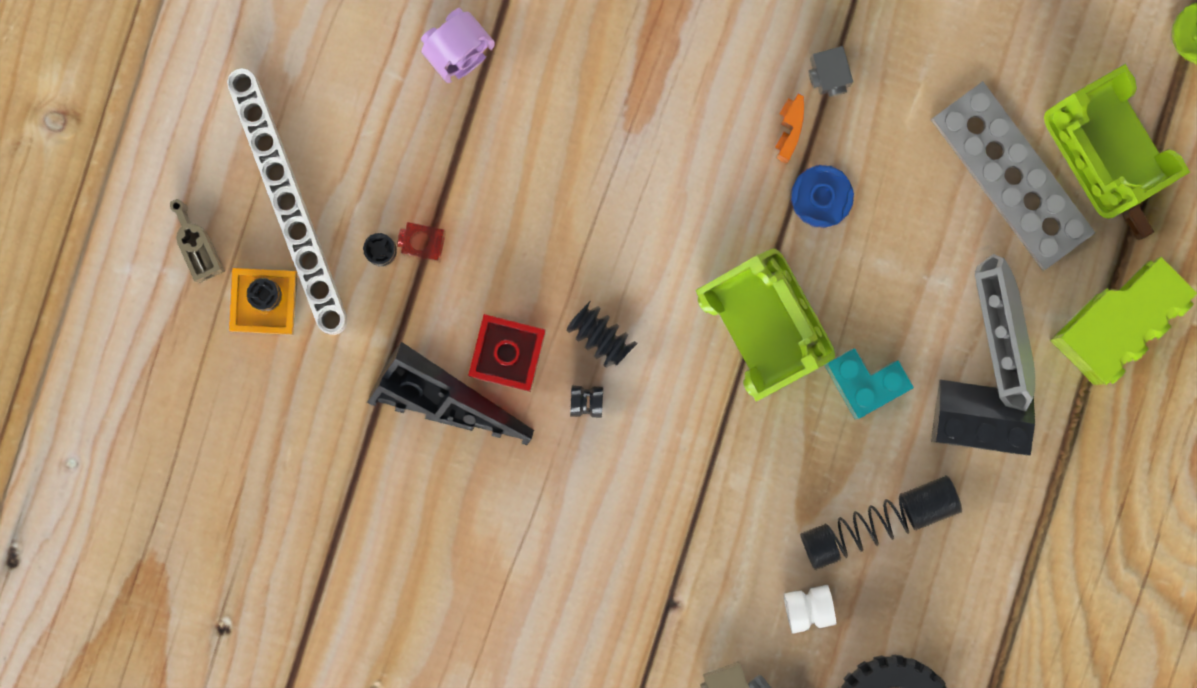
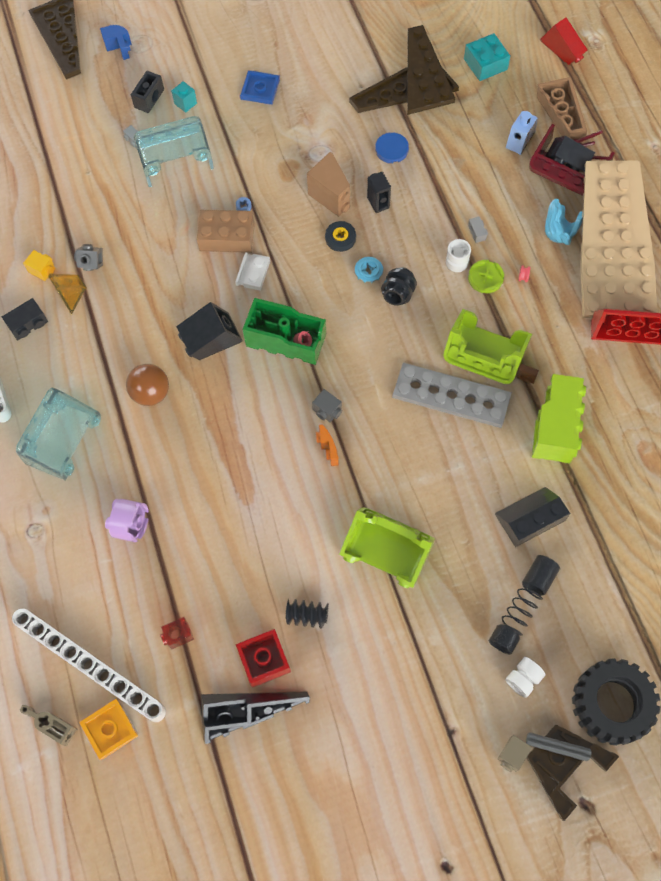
camera: 30 degrees left, 20 degrees down
(269, 296) = (108, 725): black wheel -> none
(378, 245) = (153, 651): black wheel -> none
(579, 401) = (319, 655): black wheel -> none
(822, 196) = (367, 467): blue tile -> none
(865, 391) = (460, 543): teal brick -> none
(1006, 332) = (509, 465): light grey brick -> none

